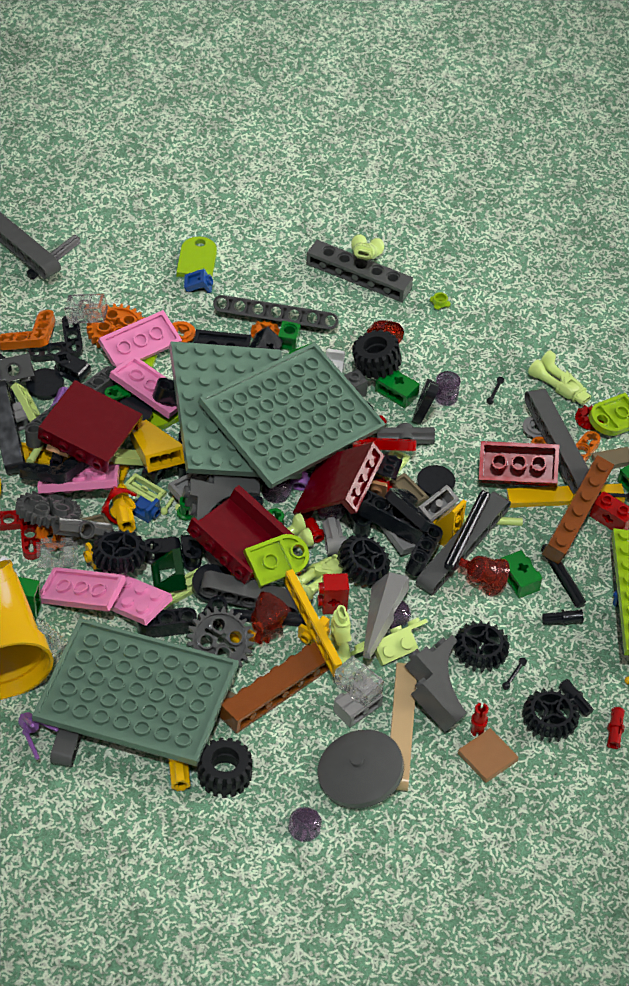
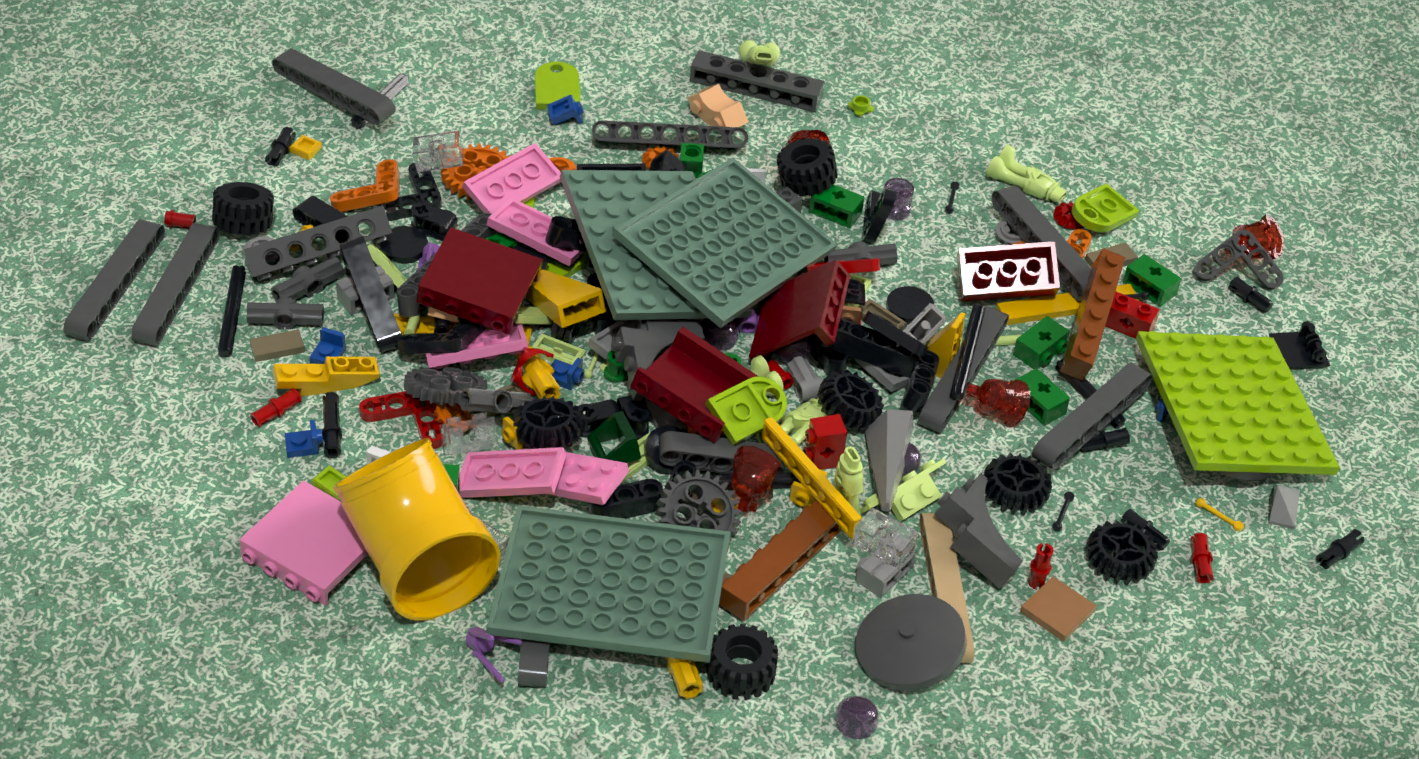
camera: 10 degrees left, 5 degrees down
(320, 292) = (717, 108): none -> light nougat brick
(533, 527) = (1041, 343): none -> green brick
(556, 596) = (1092, 416): none -> dark grey beam

